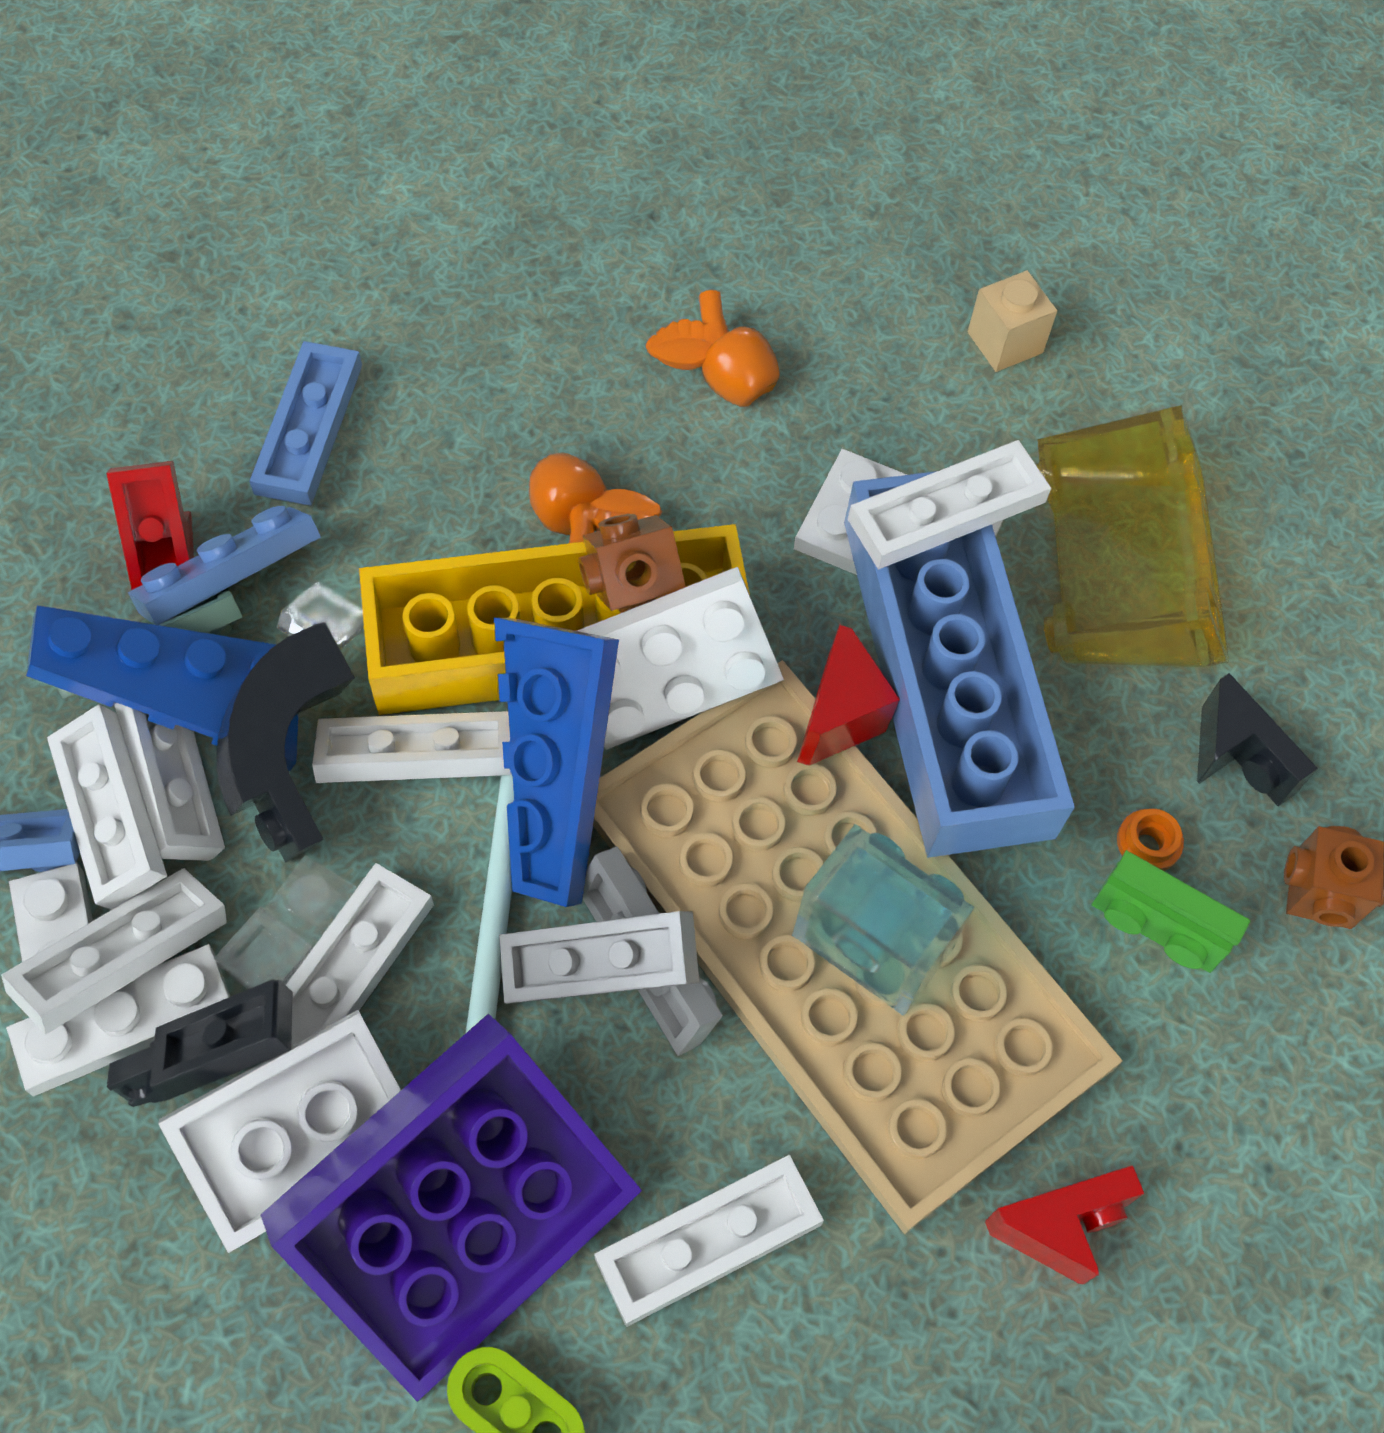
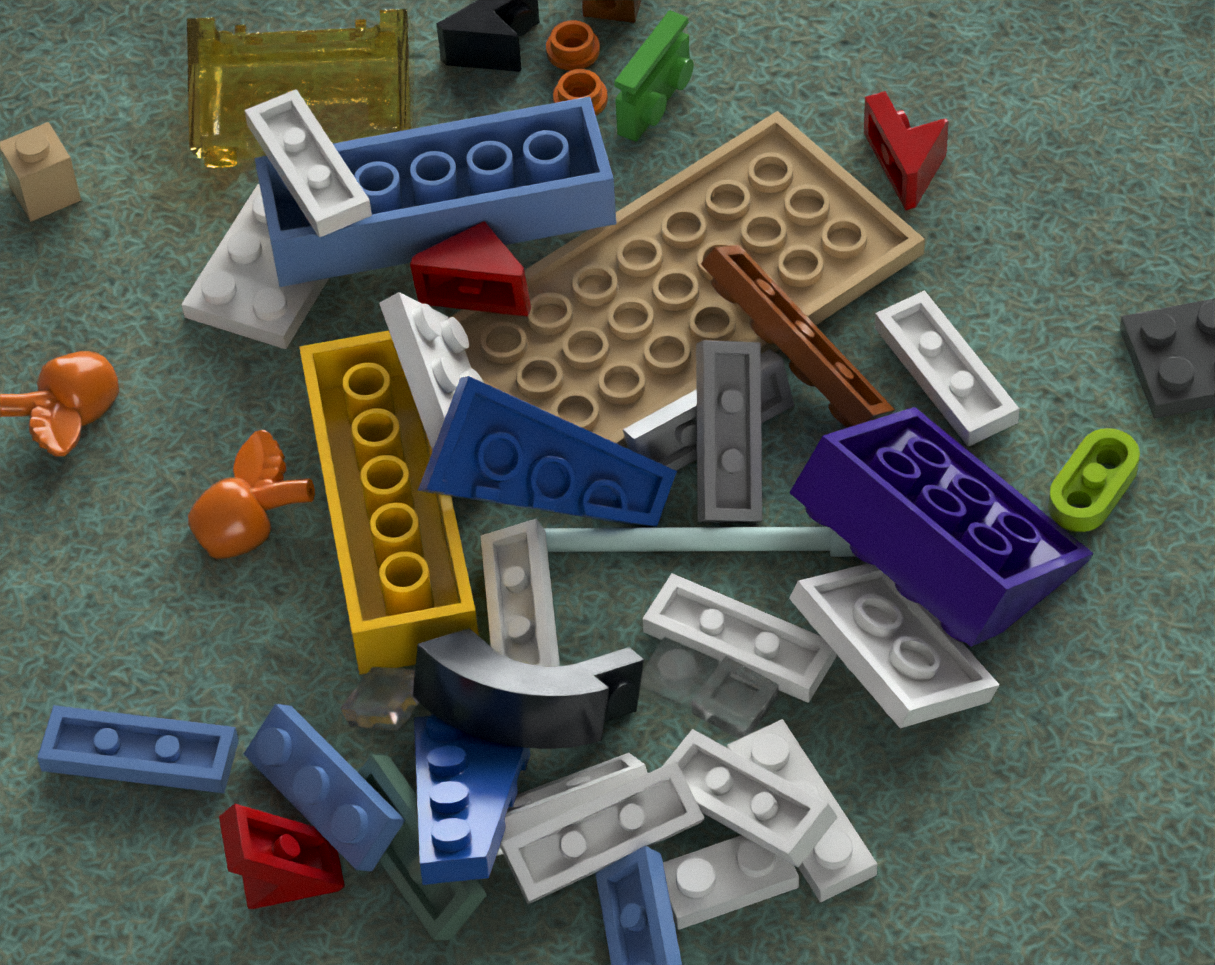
camera: 85 degrees left, 10 degrees down
(207, 1045) = (830, 708): black hinge -> none
(631, 561) = (364, 391): dark orange brick -> none
(735, 1049) = (783, 324): none -> dark orange plate
(881, 917) = (676, 224): clear light blue brick -> none
(1241, 824) = (572, 45): none -> orange plate

